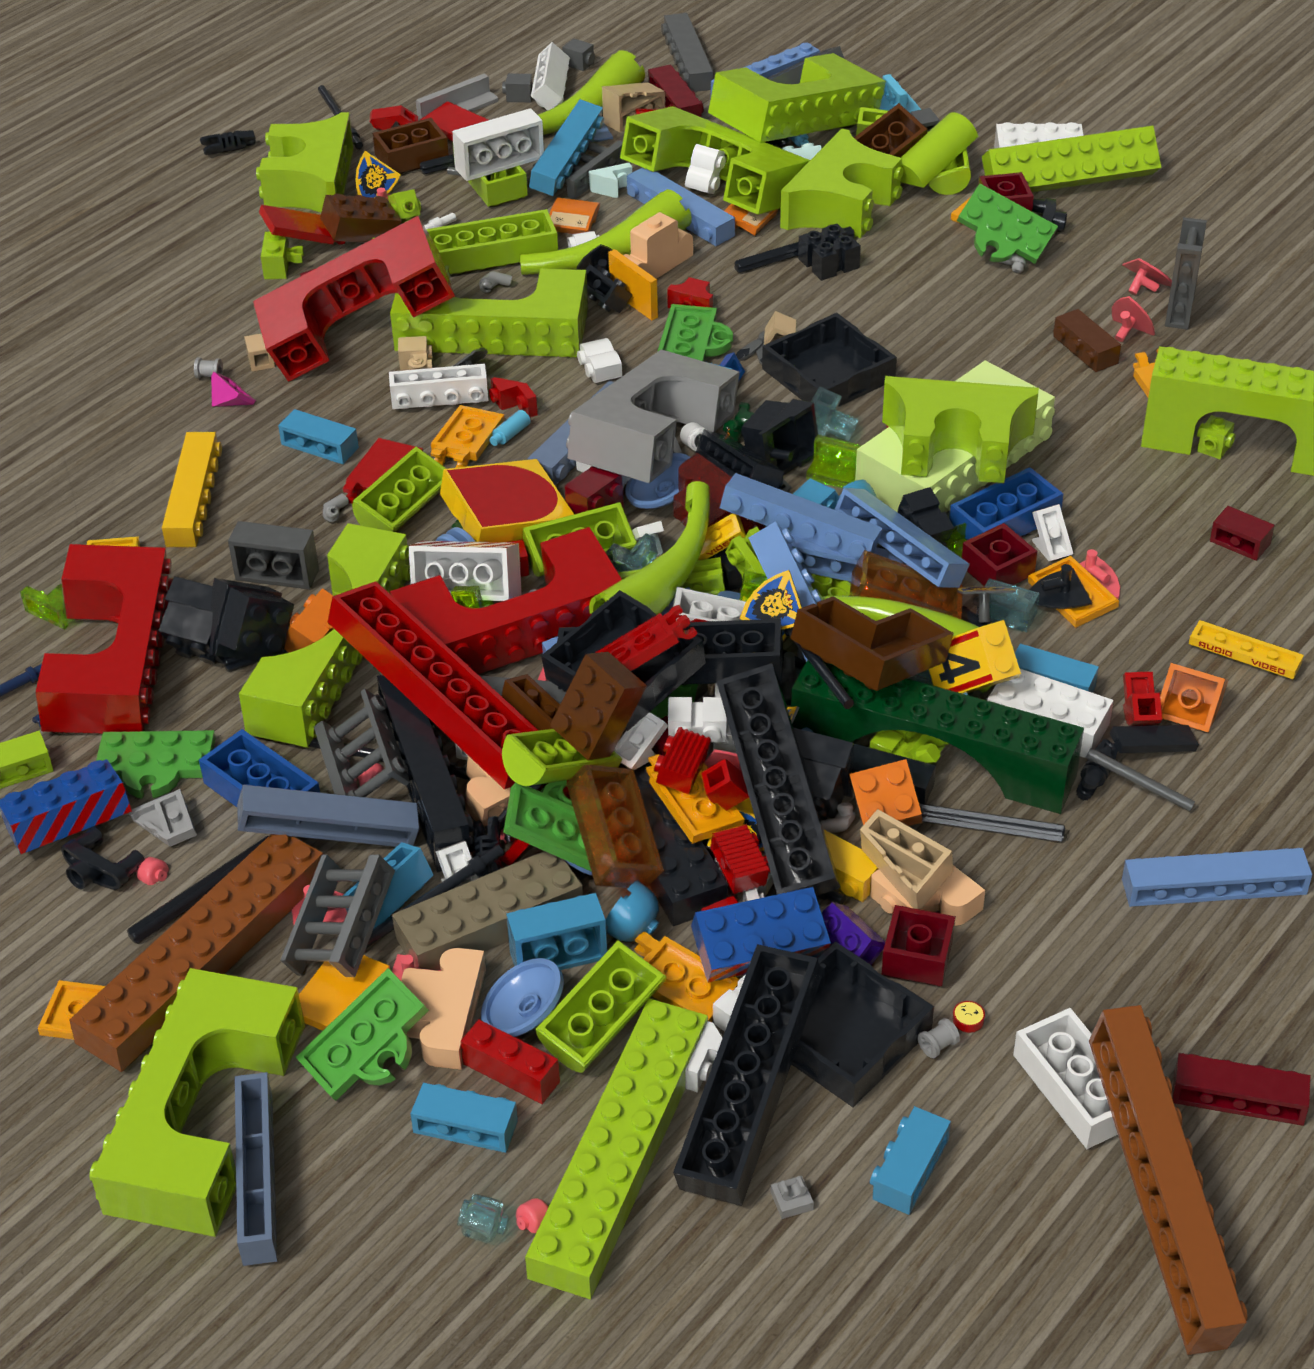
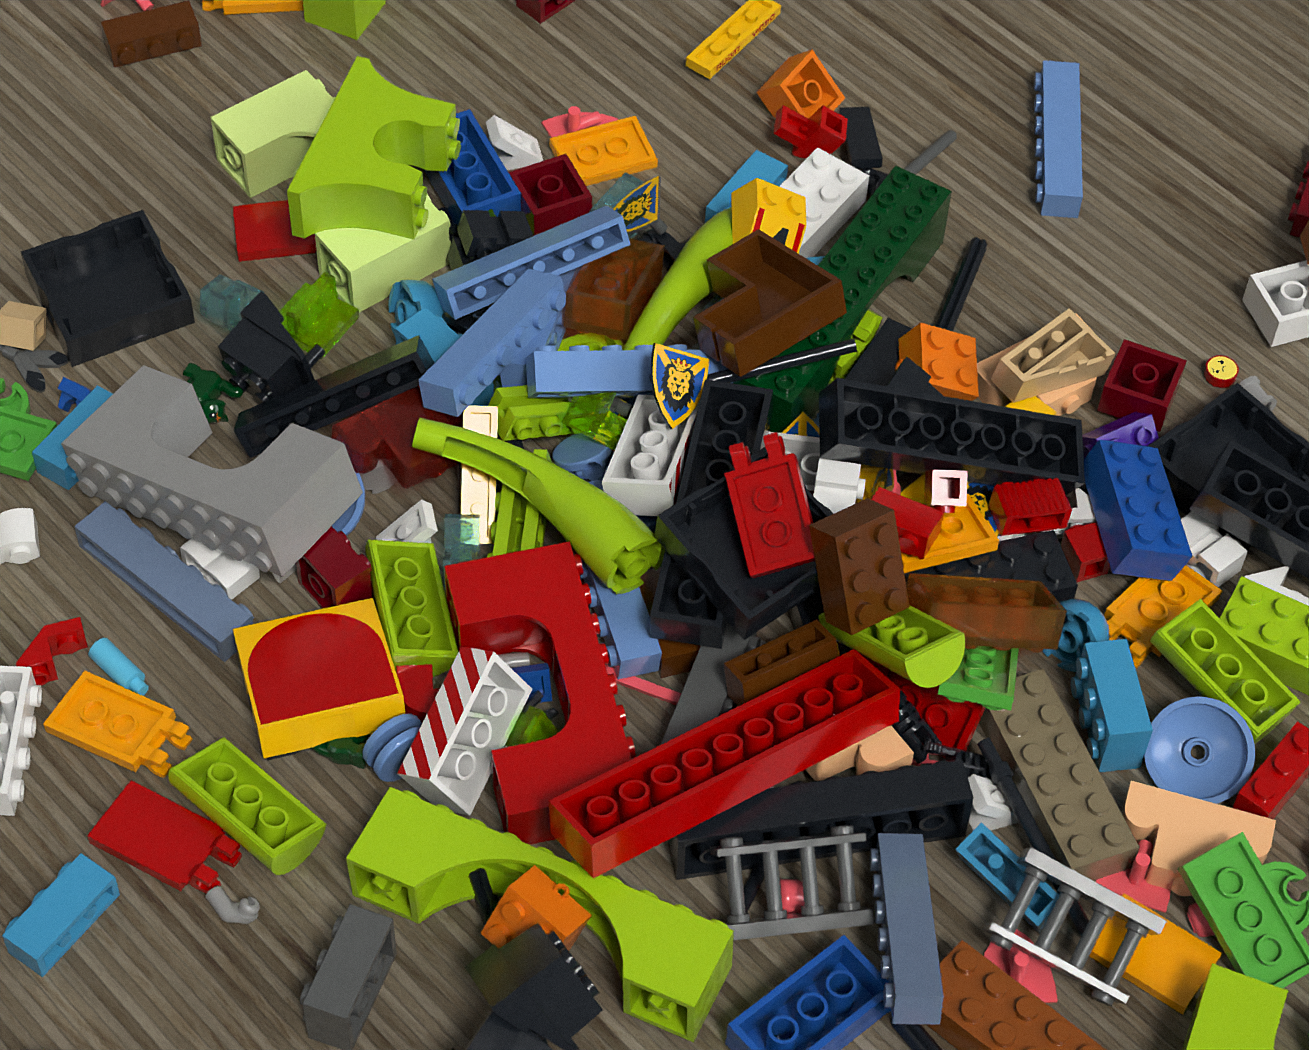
camera: 85 degrees left, 10 degrees up
(691, 435) = (221, 451): white brick -> none
(1061, 590) = (607, 158): black shield -> none

